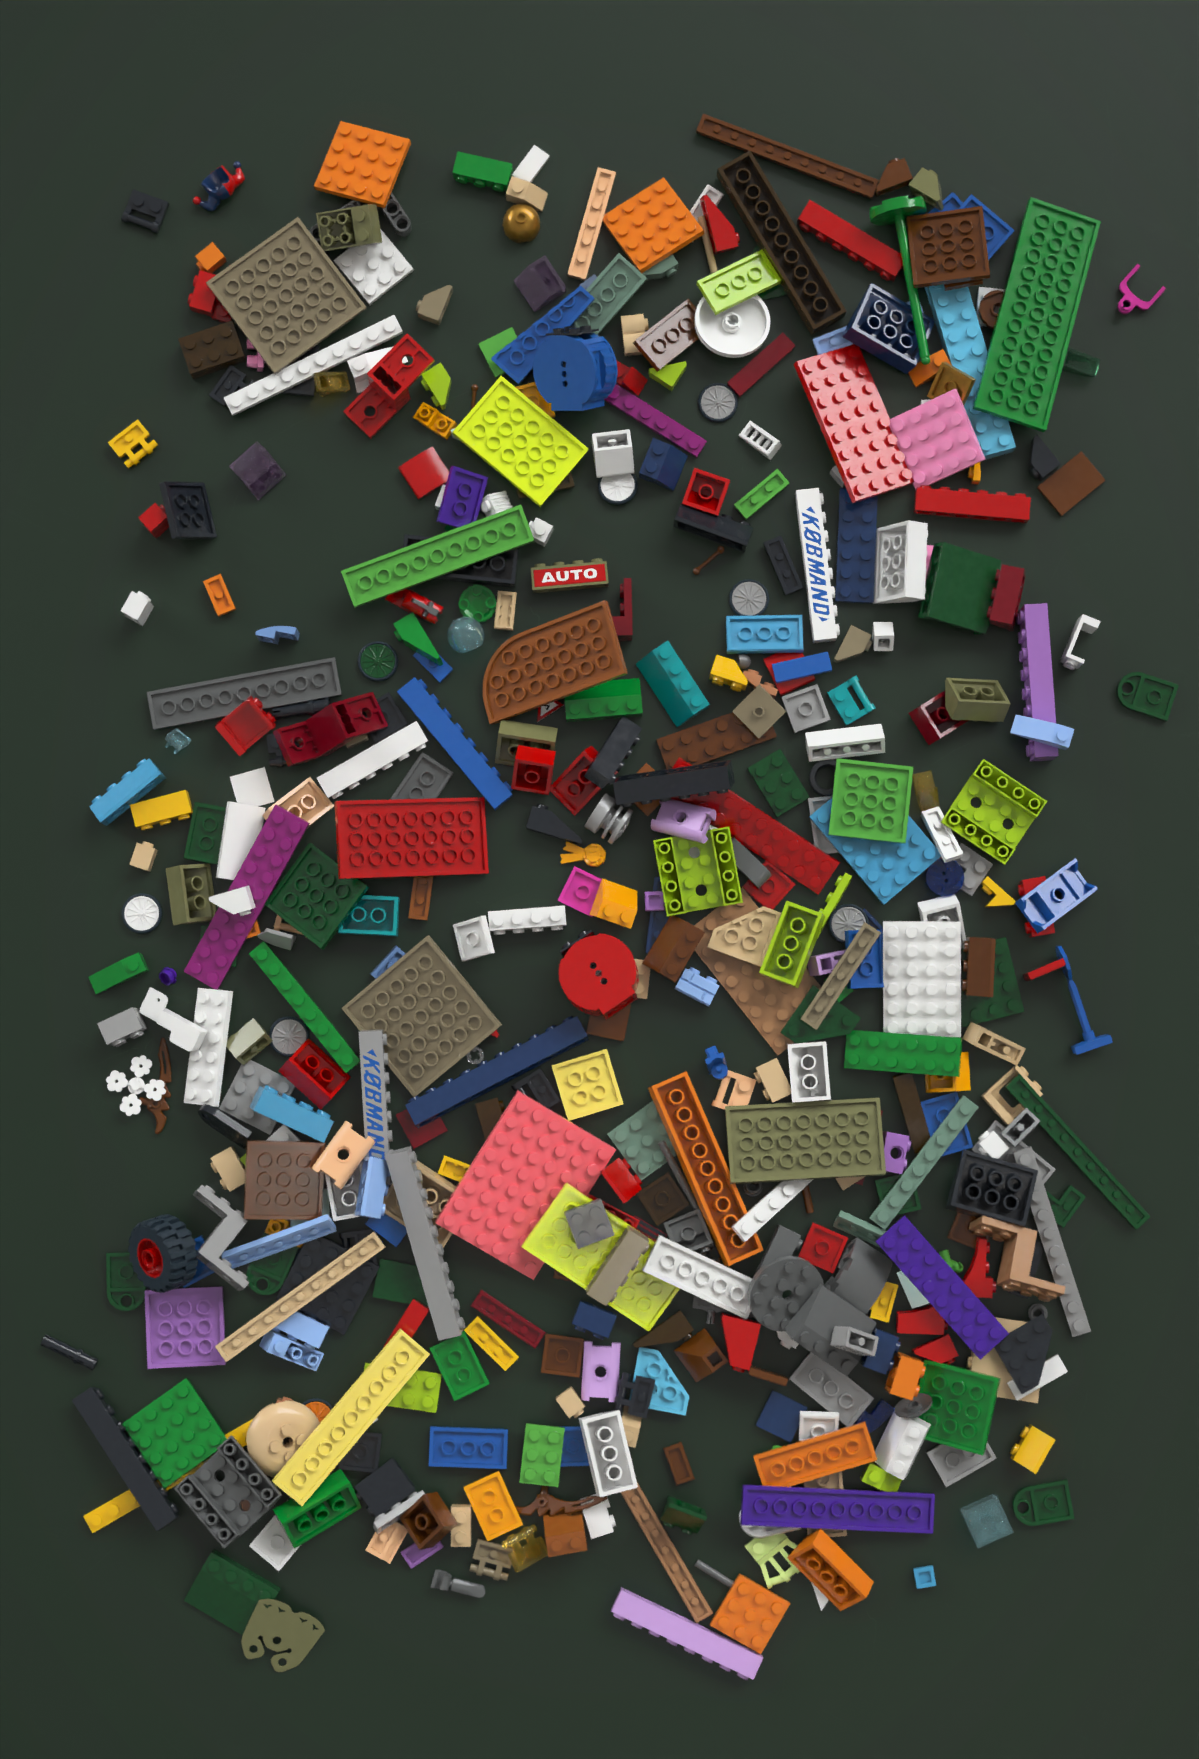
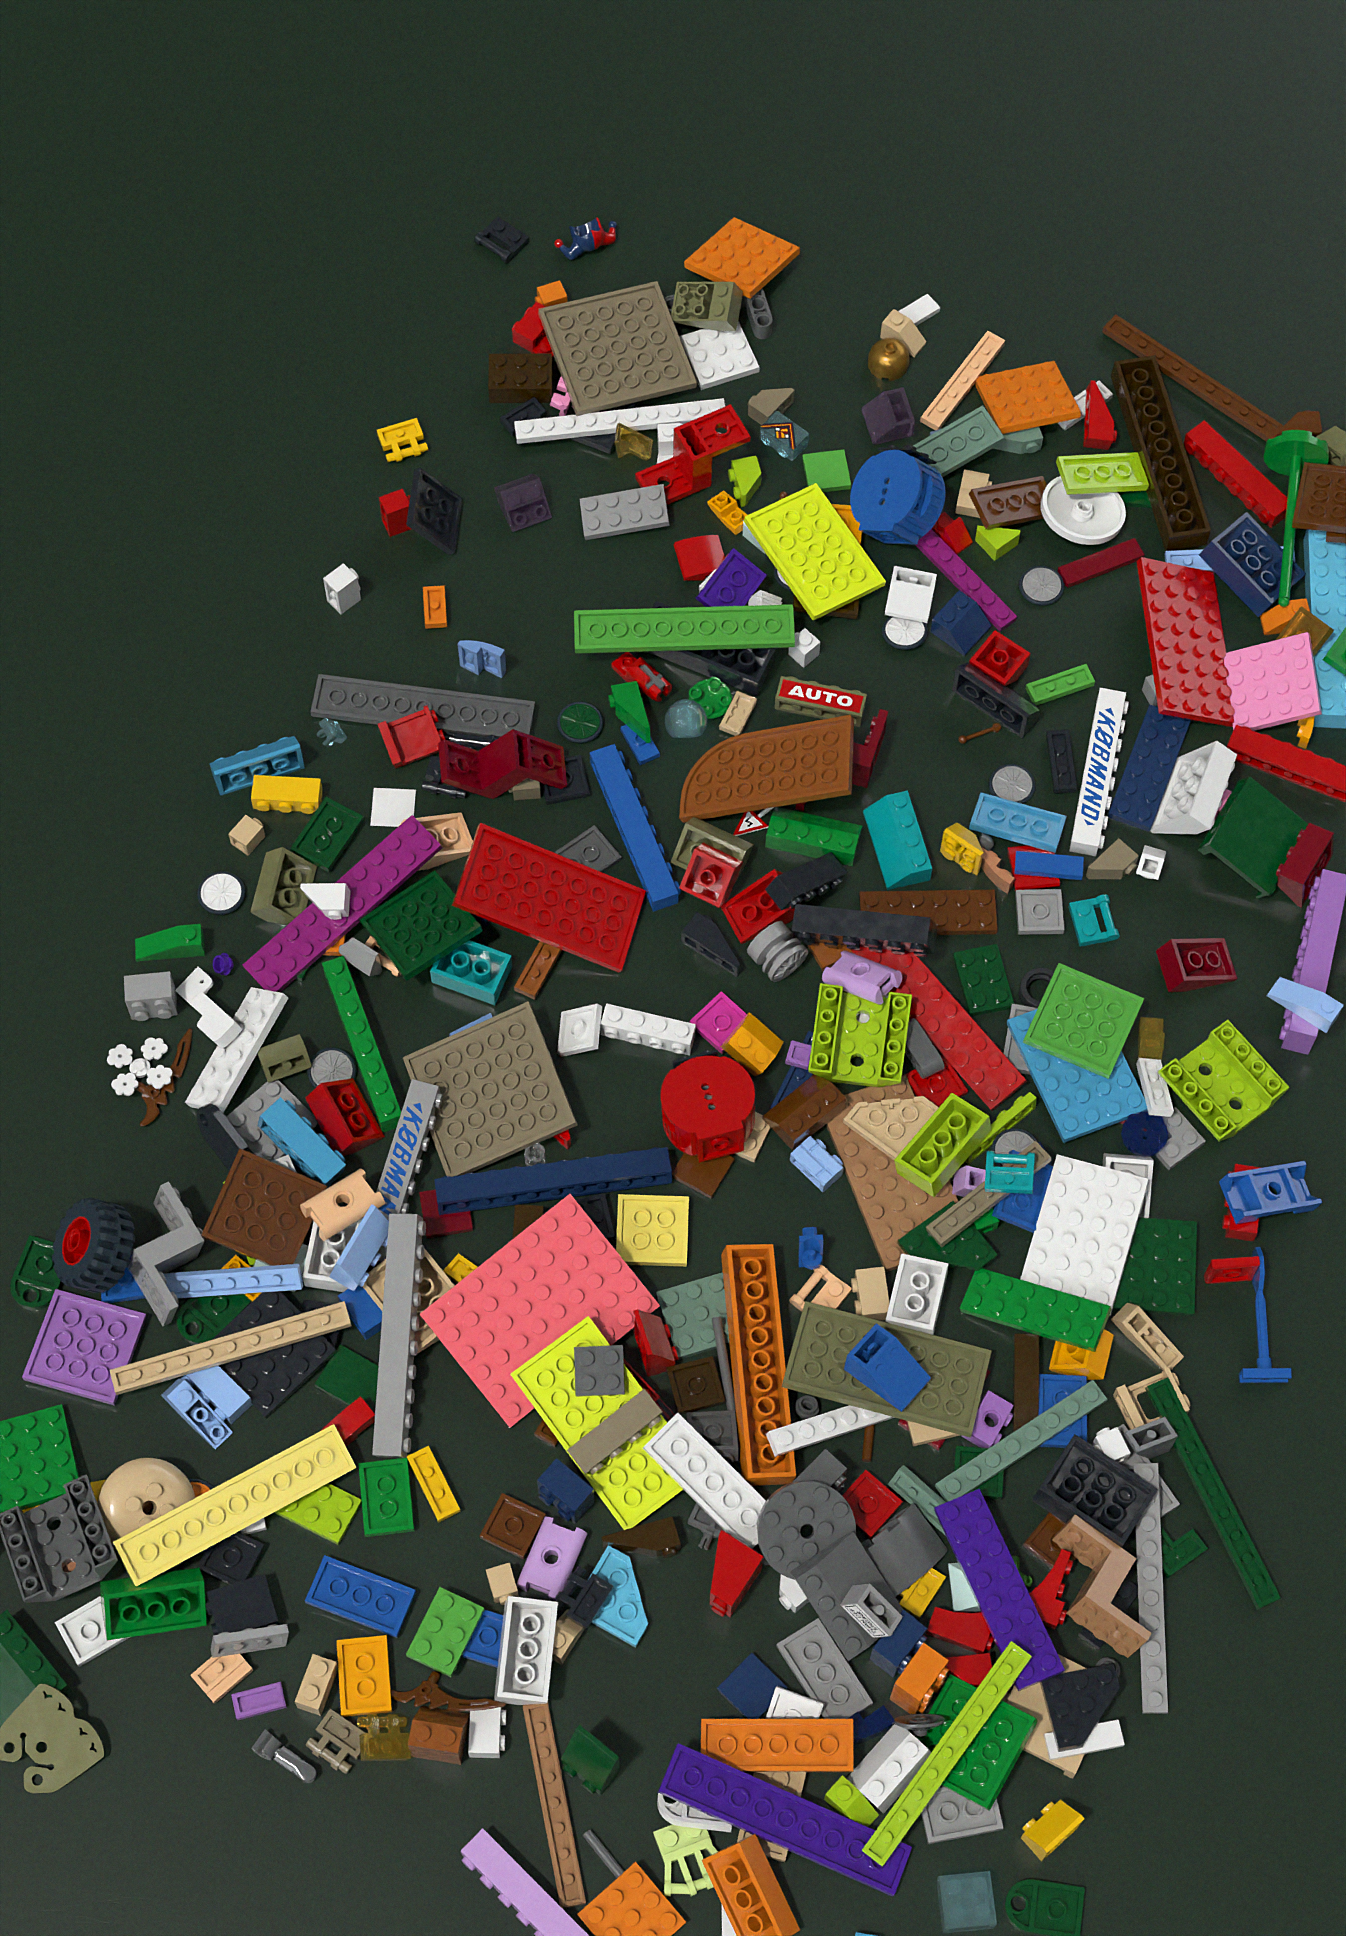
camera: 20 degrees right, 20 degrees down
(230, 1169) = (207, 1185): tan brick -> none
(240, 831) = (360, 837): white tile -> none
(346, 452) = (624, 512): none -> light grey plate
(372, 759) = (541, 813): white brick -> none
(428, 1520) = (279, 1660): reddish brown brick -> none
(456, 331) = (784, 436): none -> clear light blue brick
(482, 171) = (863, 299): green brick -> none
(508, 1319) = (463, 1464): dark red tile -> none
(518, 356) = (838, 475): blue wing -> none
(593, 854) = (745, 988): light orange piece -> none
(678, 1463) = (607, 1703): reddish brown tile -> none
(700, 1355) = (679, 1581): reddish brown slope -> none
(707, 245) = (1080, 430): tan bar -> none
(759, 711) = (986, 893): dark tan plate -> none
(768, 1375) = (751, 1627): reddish brown tile -> none
(770, 439) = (1083, 645): white slope -> none
(807, 1146) = (886, 1368): none -> blue slope
(845, 742) = (1085, 958): white brick -> none
(853, 963) = (1009, 1178): none -> teal plate
(942, 1424) = (946, 1754): none -> lime plate
(975, 700) = (1237, 958): olive slope -> none
(979, 966) = (1154, 1236): reddish brown slope -> none
(1000, 897) = (1202, 1178): yellow slope -> none

